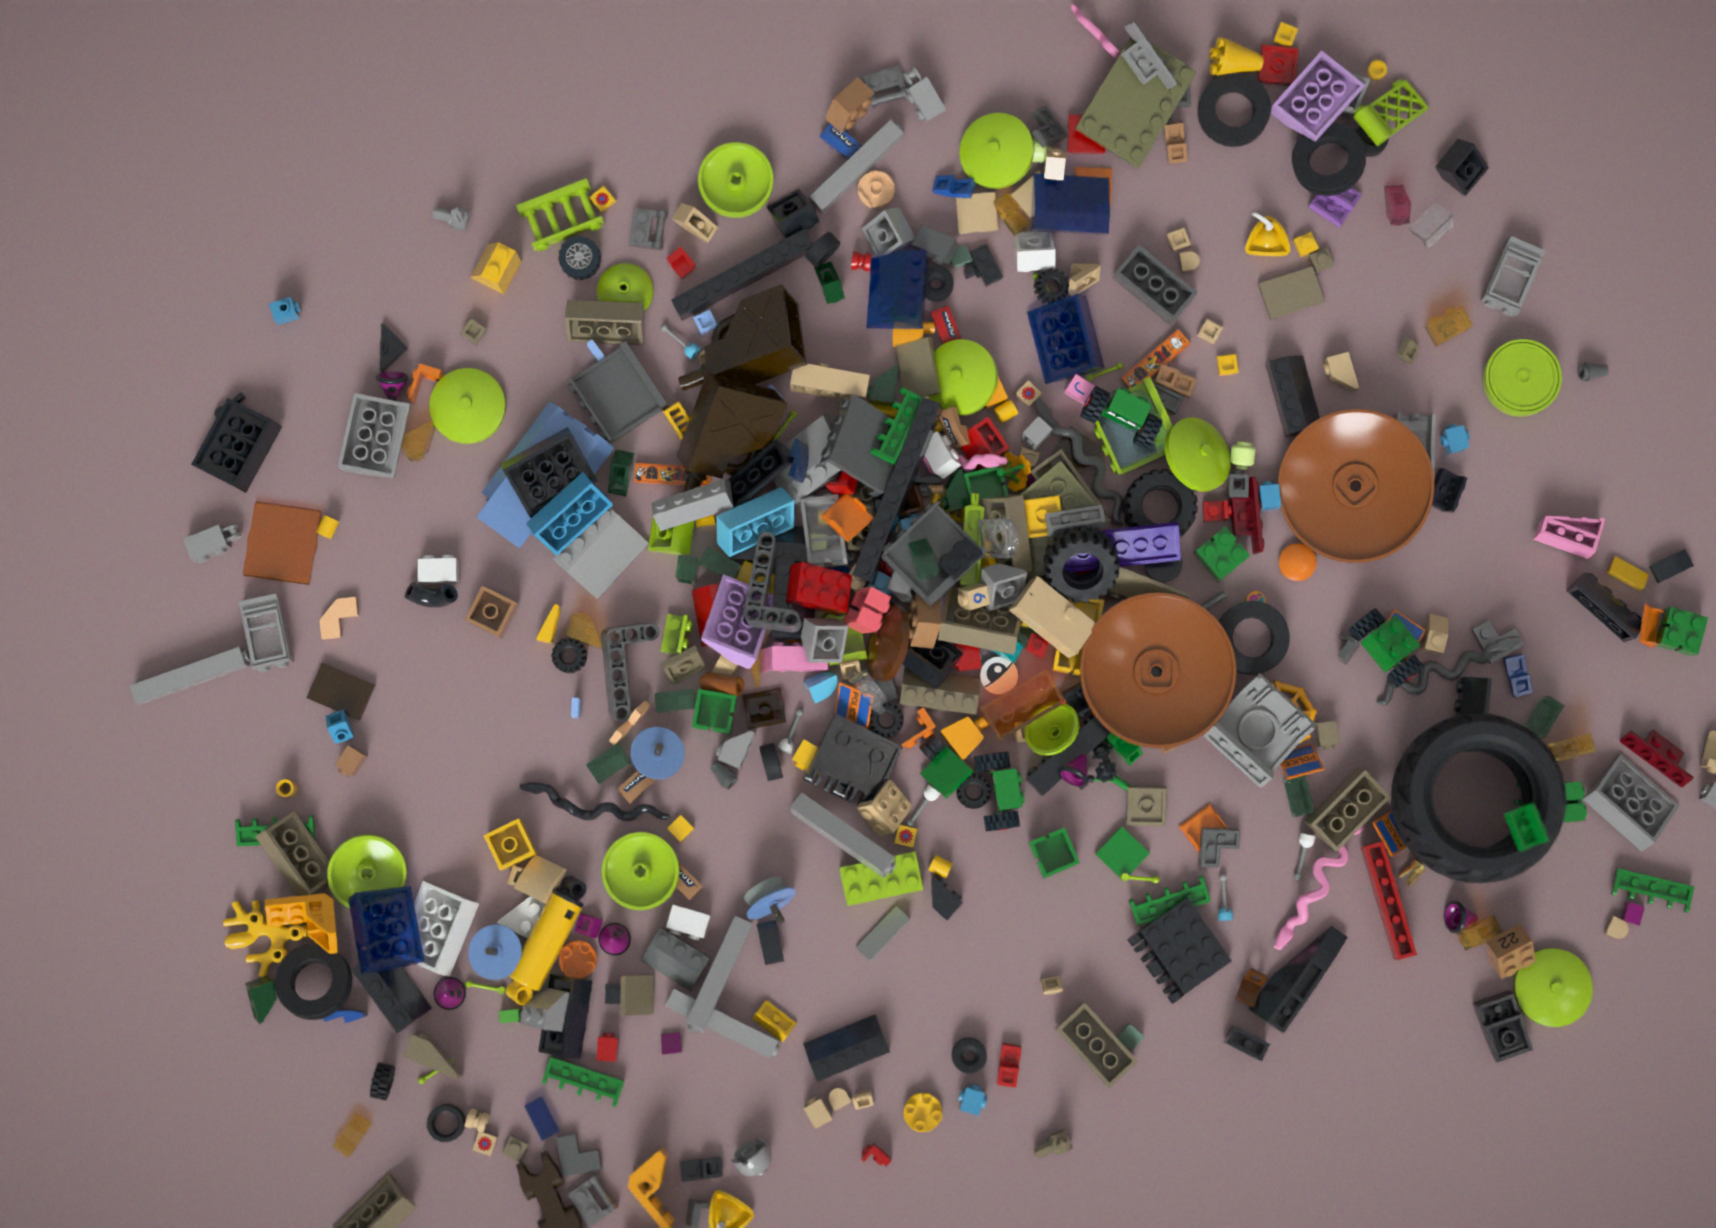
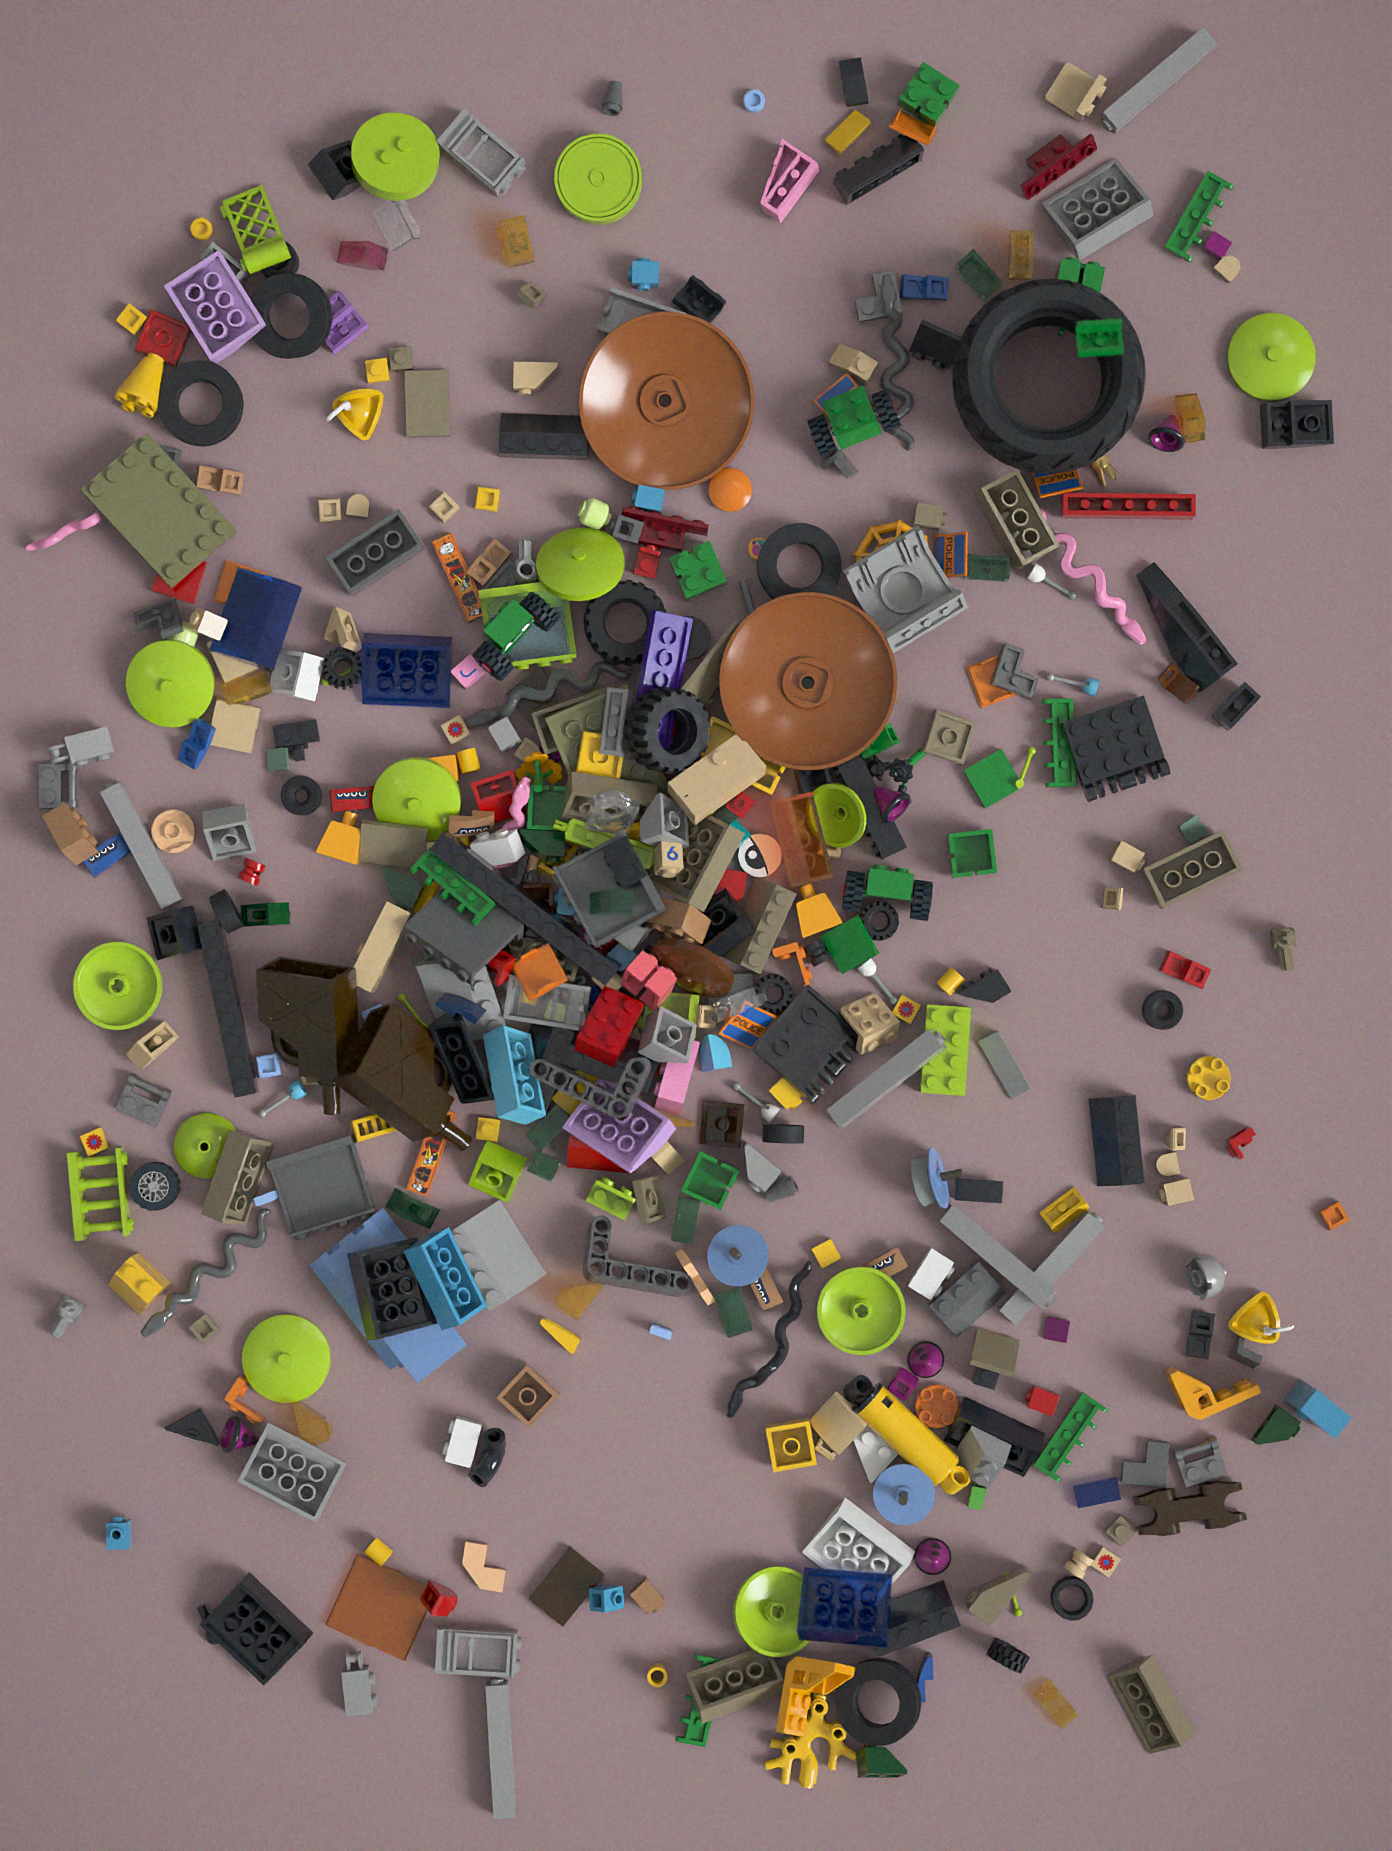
camera: 75 degrees left, 5 degrees up
(300, 587) = (438, 1599): none -> red slope
(471, 291) = (159, 1319): none -> dark grey animal
(501, 990) = (945, 1499): lime hinge -> none
(557, 655) = (600, 1336): black tyre -> none
(681, 263) = (194, 1074): red panel -> none
(692, 504) = (476, 1139): light grey slope -> none
(722, 683) = (681, 1163): dark orange brick -> none
(898, 290) = (298, 841): clear blue slope -> none
(937, 245) = (258, 784): dark grey brick -> none
(972, 1099) = (1211, 1020): dark azure brick -> none
(1089, 377) = (456, 656): lime hinge -> none
(1090, 987) = (1127, 857): none -> tan brick
(1144, 59) = (119, 488): light grey bracket -> none
(1185, 409) = (524, 561): none -> light grey axle
(1487, 206) = (395, 156): none -> lime brick
(1510, 951) = (1221, 391): medium nougat brick -> none
(1628, 488) = (753, 101): none -> light blue tile

